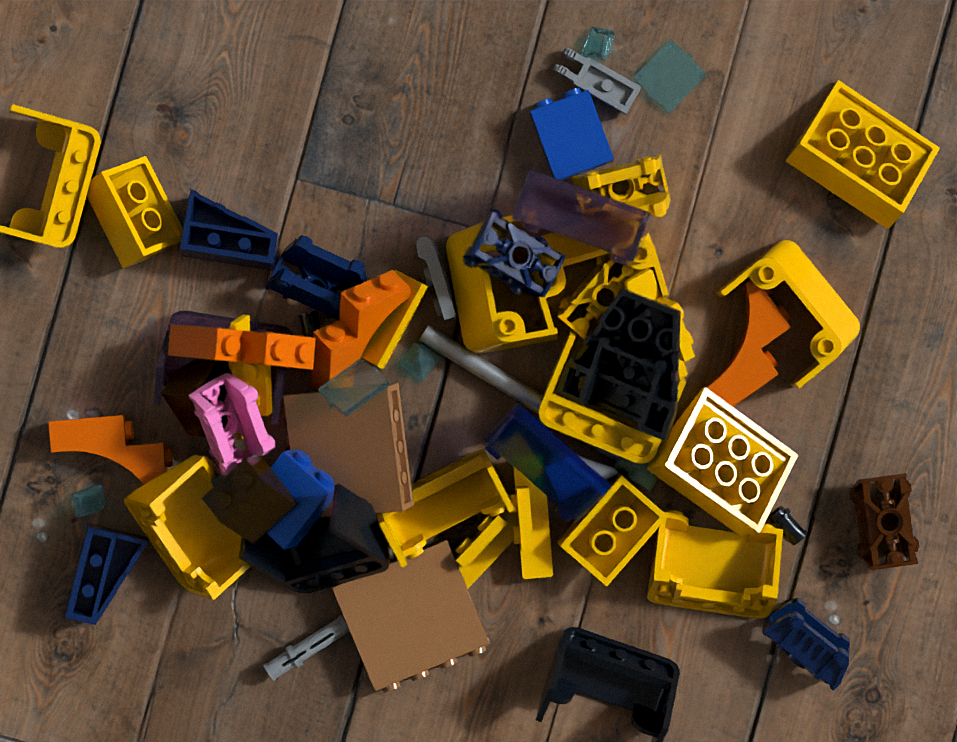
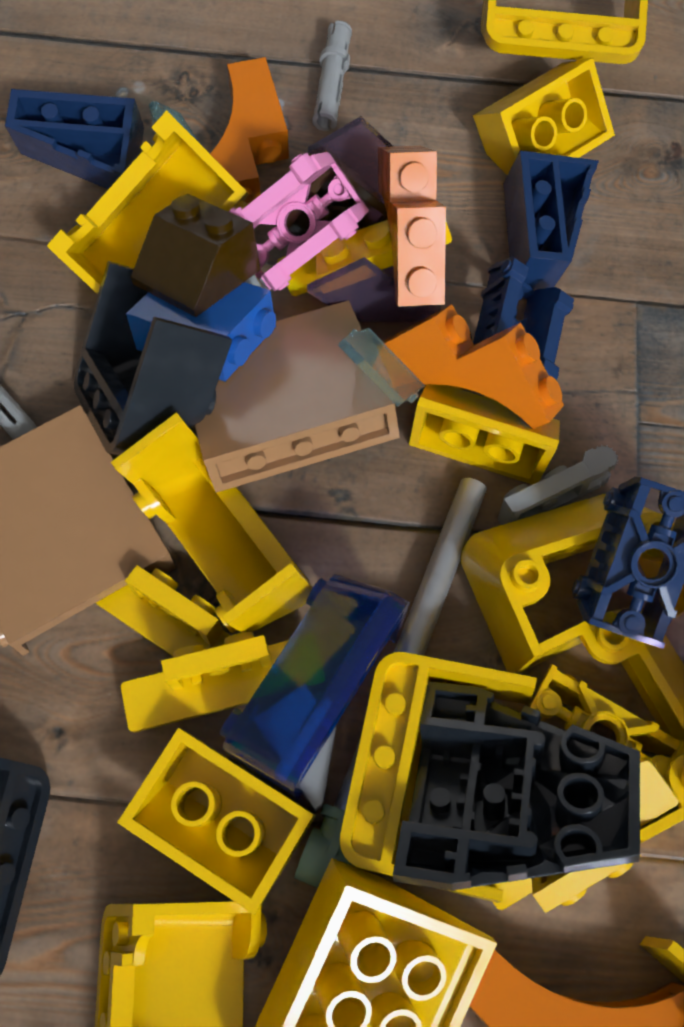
camera: 75 degrees right, 20 degrees down
(63, 370) = (334, 64): none -> light grey pin
(419, 360) = (431, 488): clear light blue slope -> none

